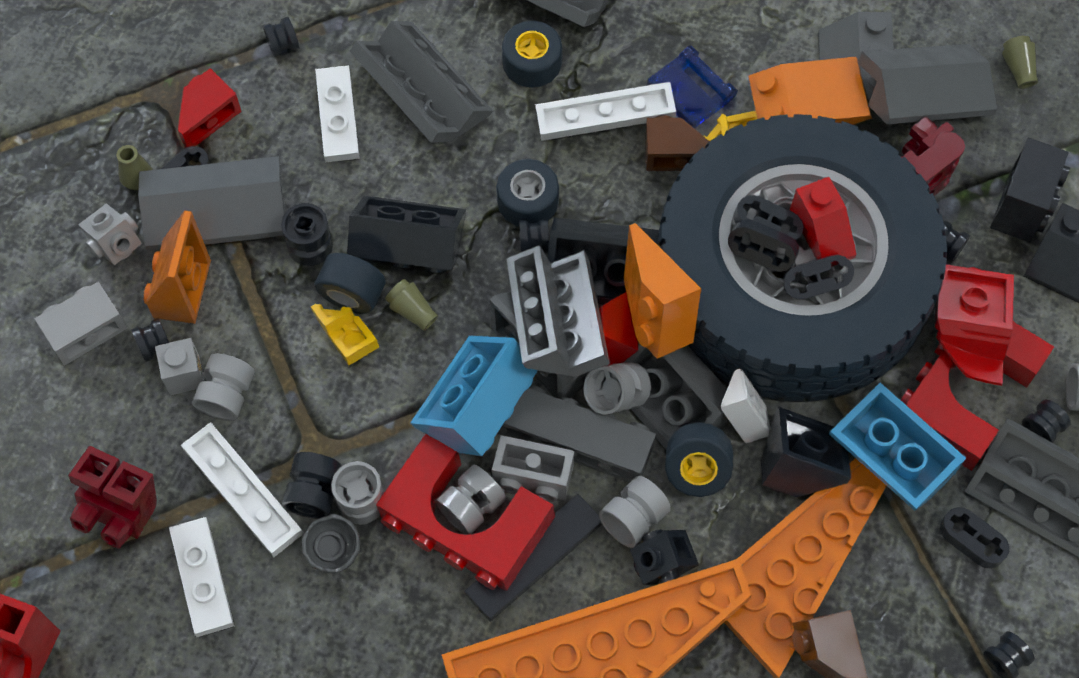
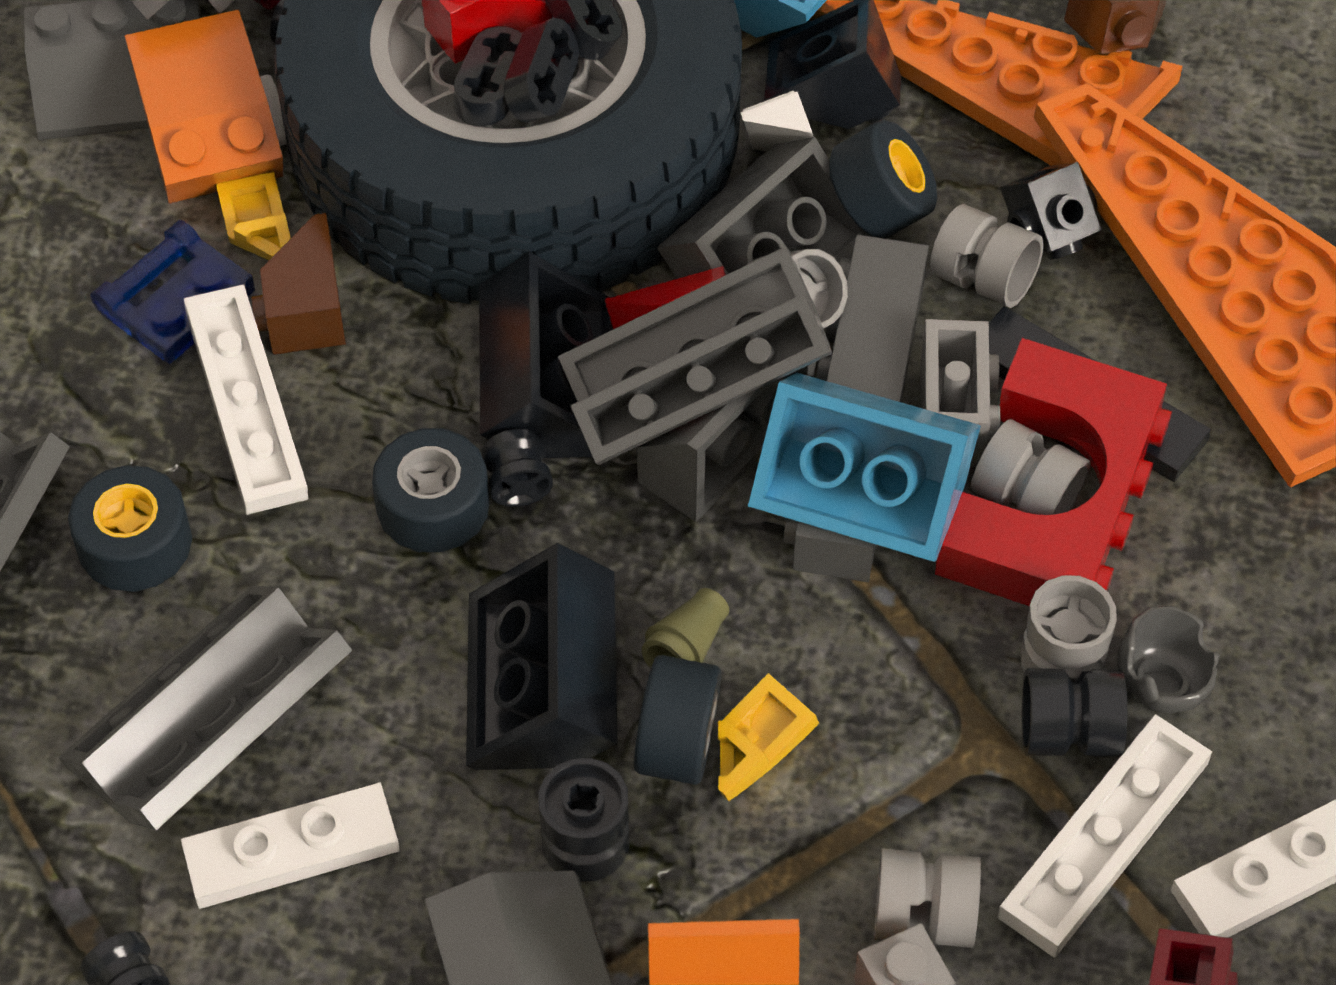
camera: 100 degrees left, 10 degrees down
(659, 296) = (641, 216): orange slope -> none

